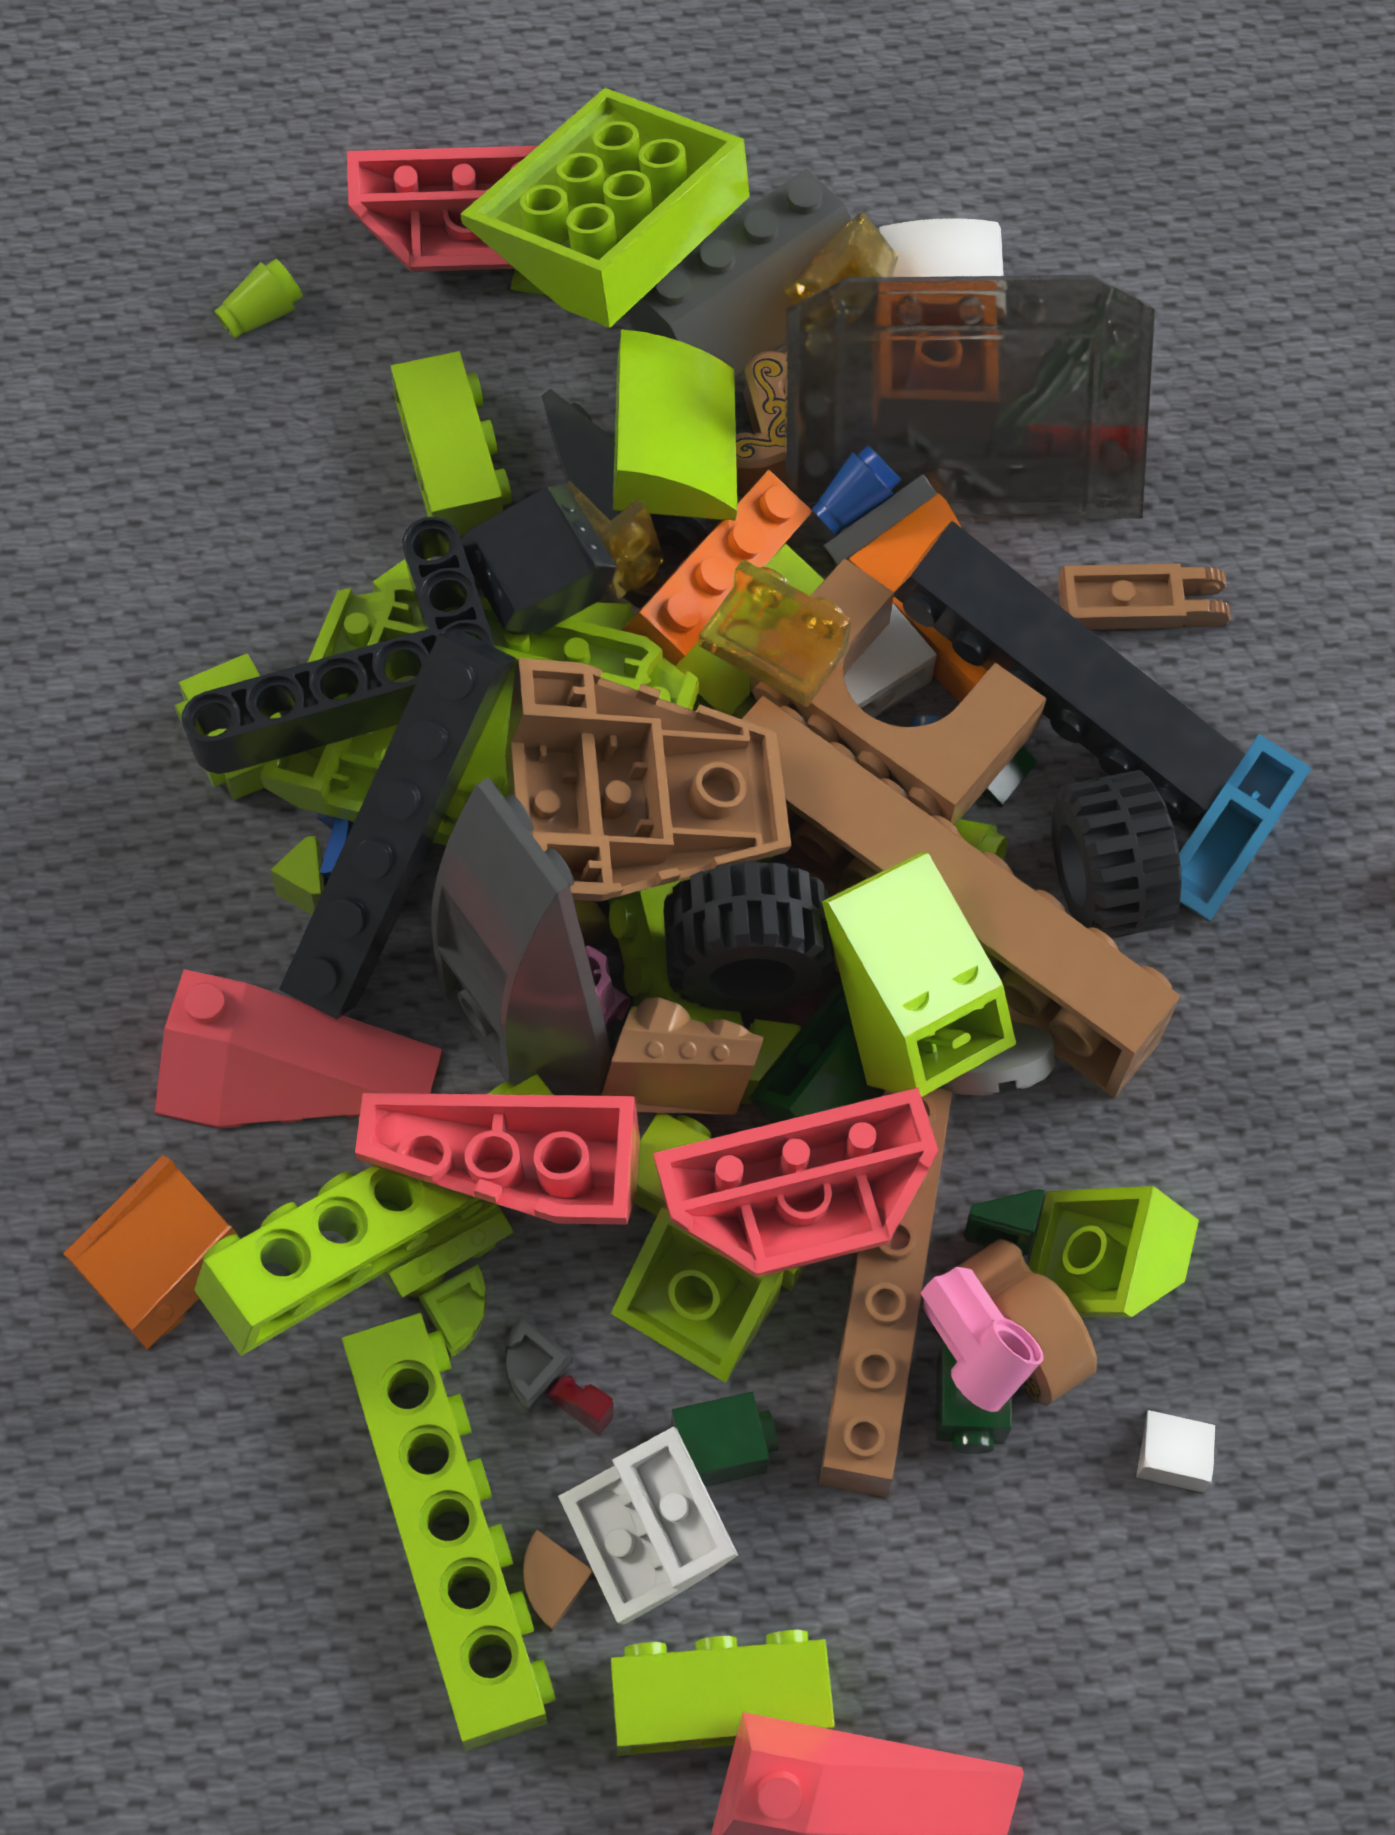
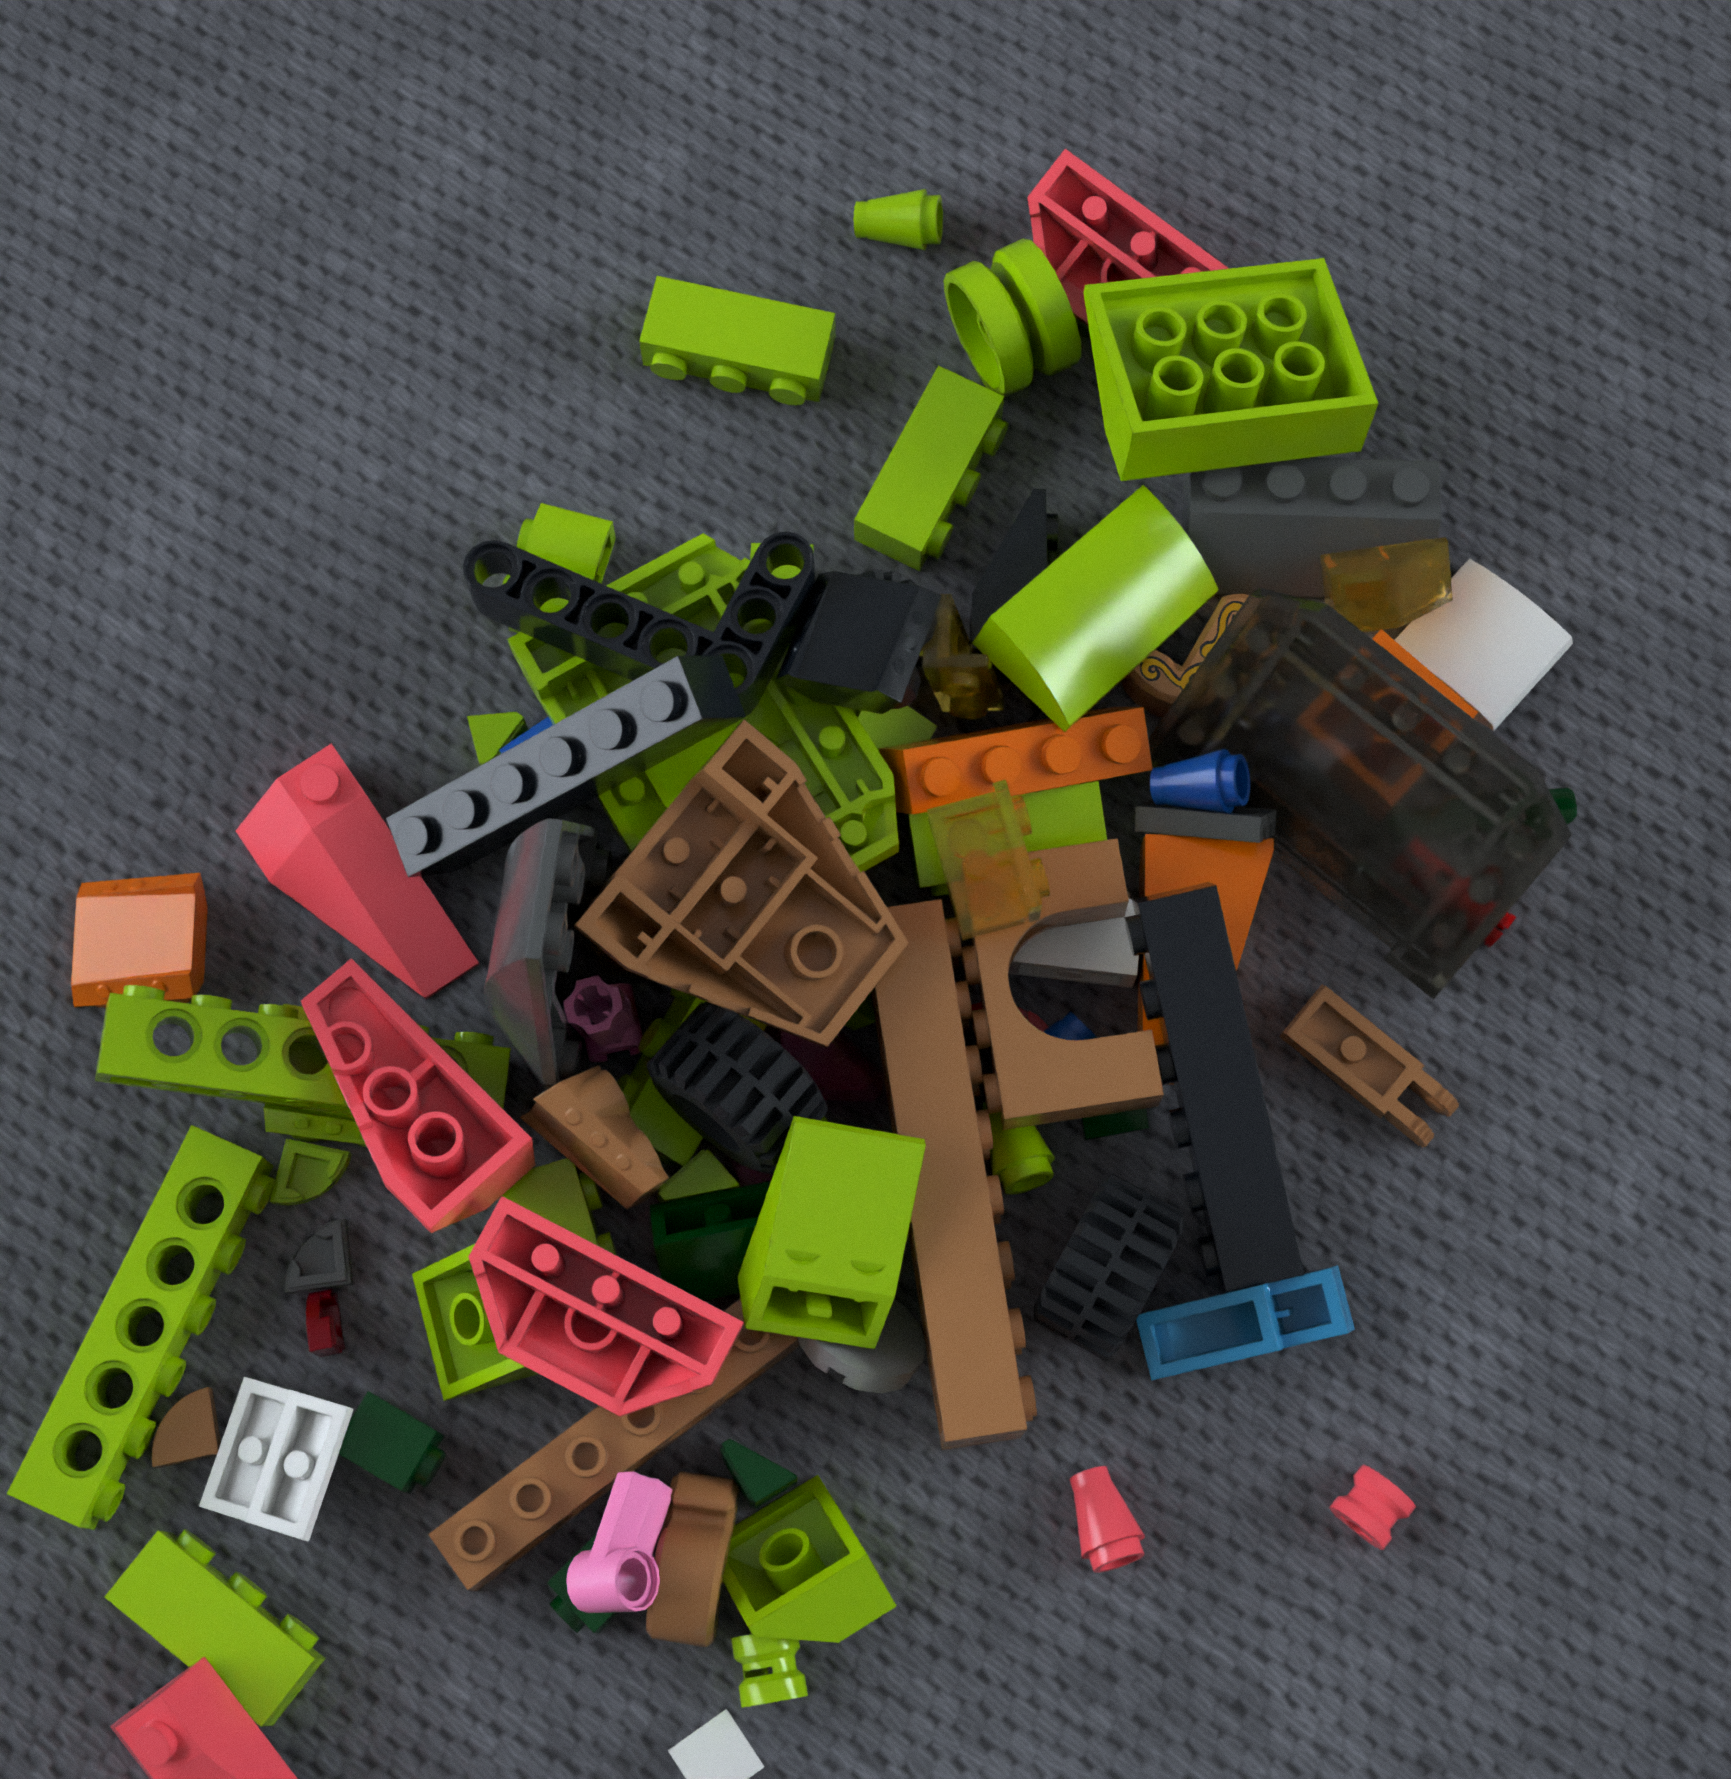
camera: 45 degrees right, 10 degrees up
(217, 465) = (737, 340): none -> lime brick
(414, 291) = (1013, 317): none -> lime wheel
(1139, 1337) = (757, 1655): none -> lime wheel
(1276, 1042) = (1105, 1524): none -> coral cone

